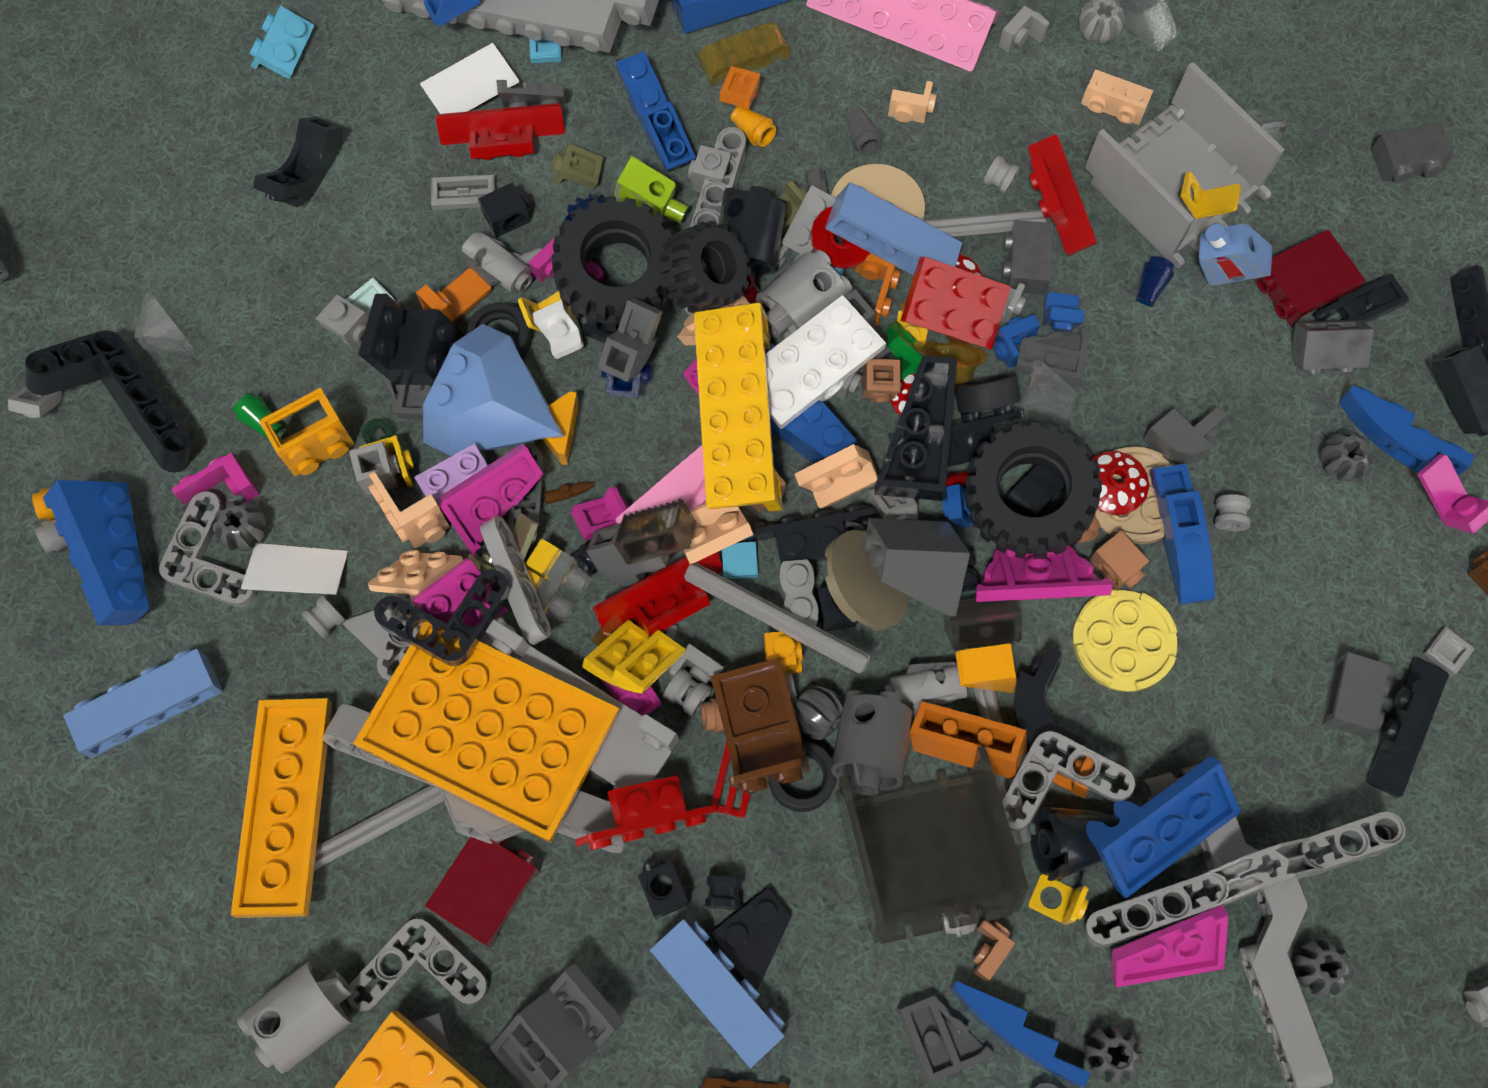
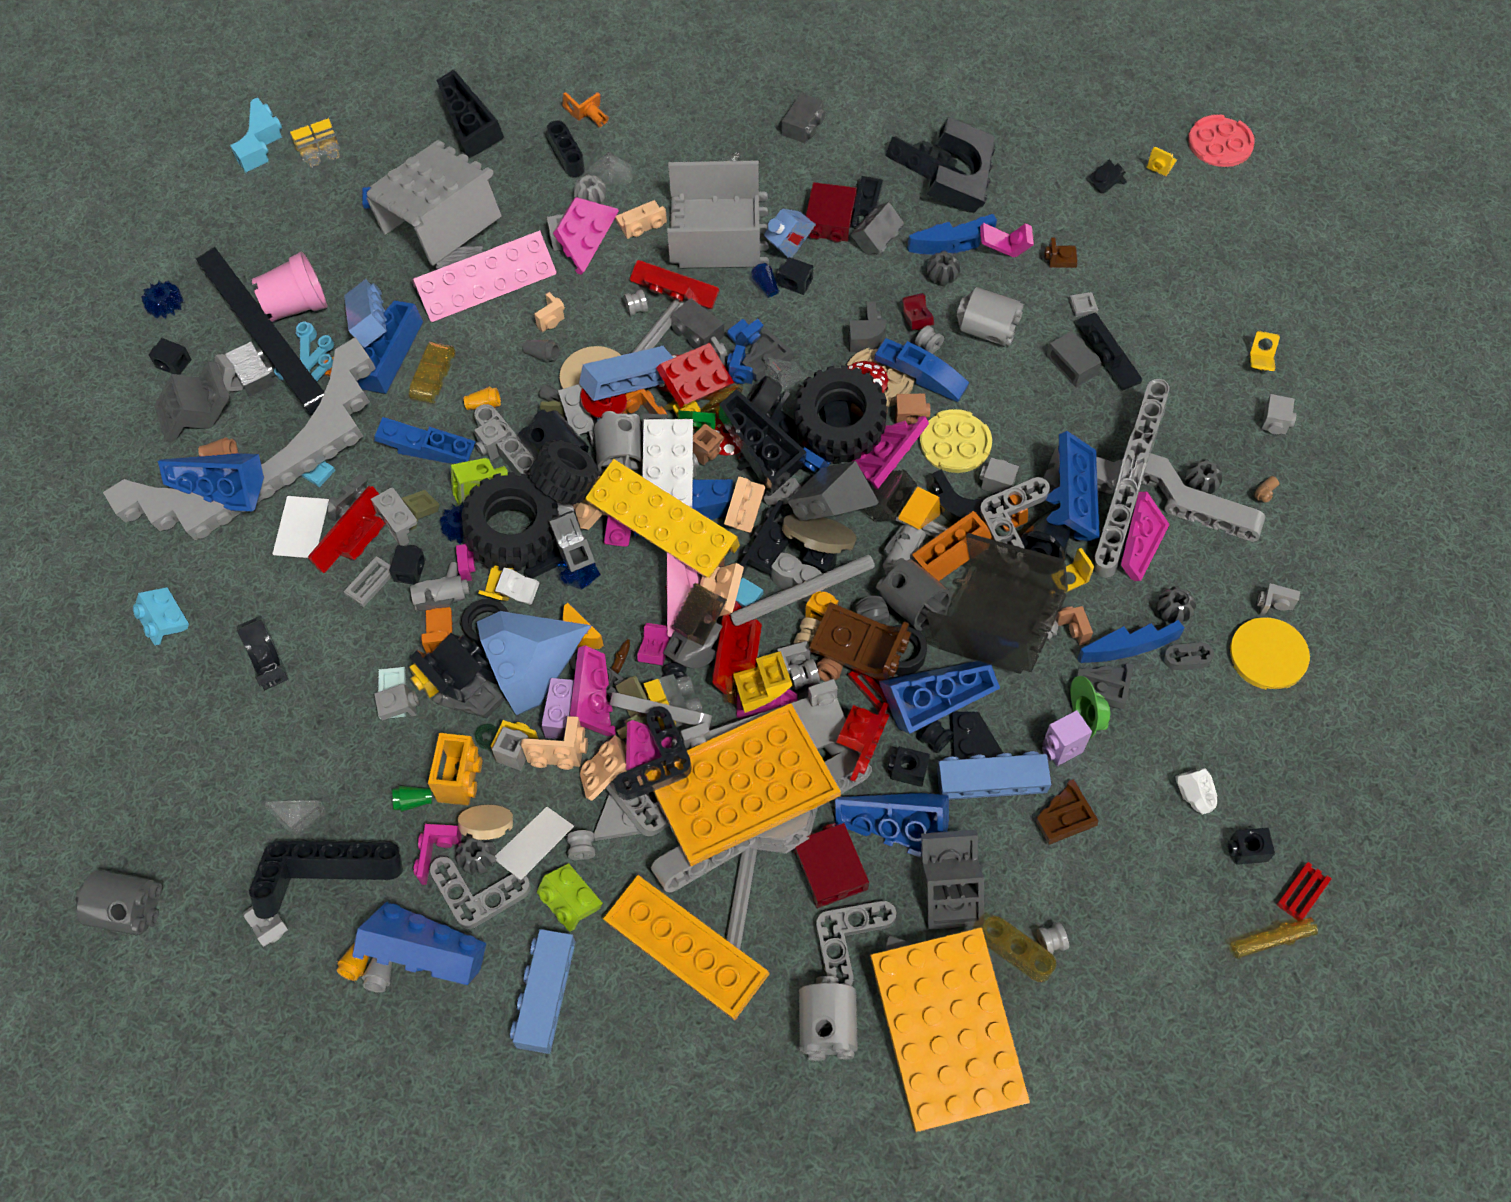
camera: 50 degrees left, 10 degrees down
(262, 648) = (568, 896): none -> lime bracket
(277, 506) = (485, 821): none -> tan tile
(545, 152) = (395, 515): none -> light grey bracket
(600, 931) = (895, 817): none -> blue wedge
(740, 87) = (454, 387): orange bracket -> none
(741, 658) = (808, 630): none -> tan wheel
(772, 856) = (936, 693): none -> blue wedge
(824, 1044) = (1066, 738): none -> lavender brick
(888, 1047) = (1089, 704): none -> bright green piece
(1044, 53) = (583, 230): none -> wing
(1115, 723) = (998, 475): none -> light grey brick
(1187, 307) = (795, 275): none -> black brick
(1210, 201) = (749, 217): yellow bracket -> none
(1258, 471) = (916, 312): none -> dark red bracket
(1323, 556) = (989, 316): none -> light grey cylinder
(1370, 1054) = (1265, 489): none -> medium nougat arm

